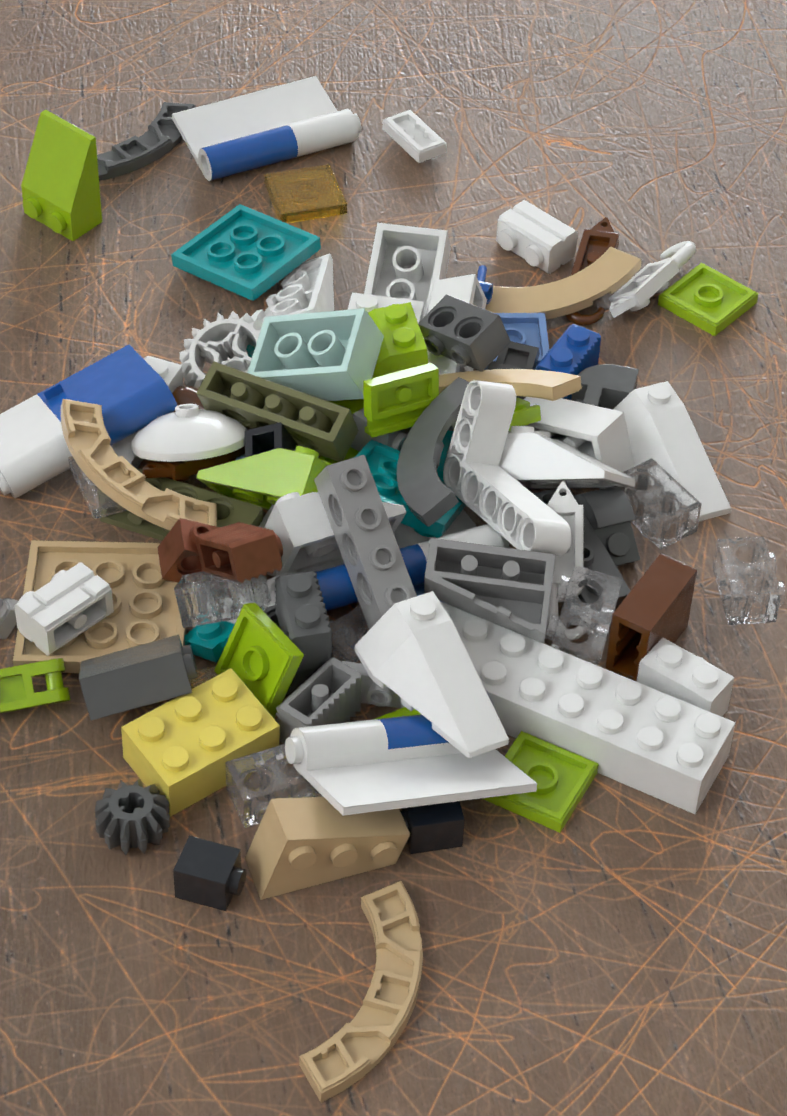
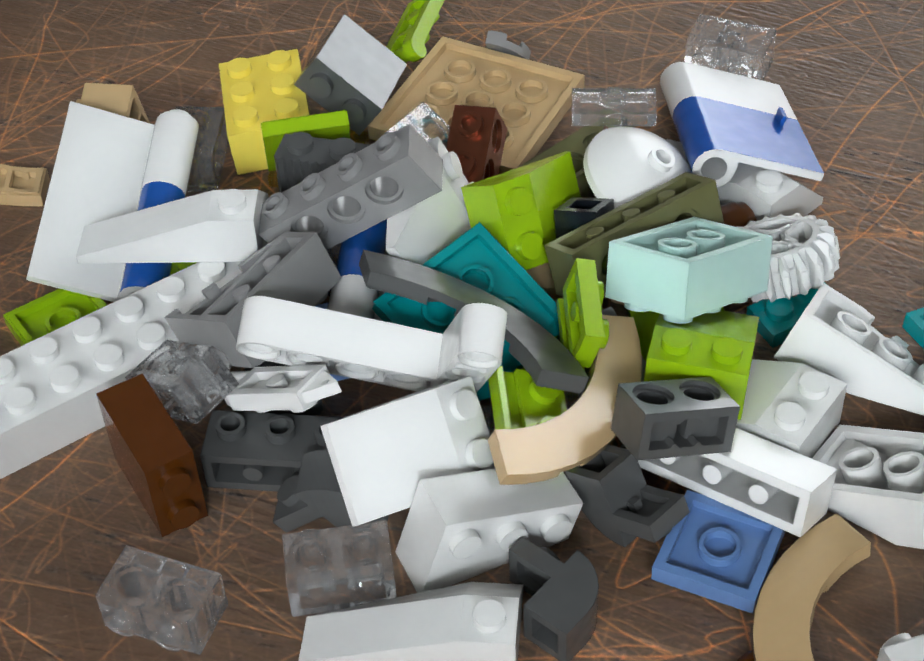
camera: 120 degrees right, 0 degrees up
(63, 608) = (466, 56): white brick -> none
(117, 478) = (595, 97): tan tile -> none
(132, 816) = (219, 52): dark grey gear -> none
(208, 873) = (149, 80): black brick -> none
(239, 552) = (397, 106): copper brick -> none
(323, 699) = (239, 167): light grey brick -> none
(486, 287) = (825, 534): blue hand -> none
(572, 352) = (635, 581): blue brick -> none
(686, 677) = (64, 463): white brick -> none

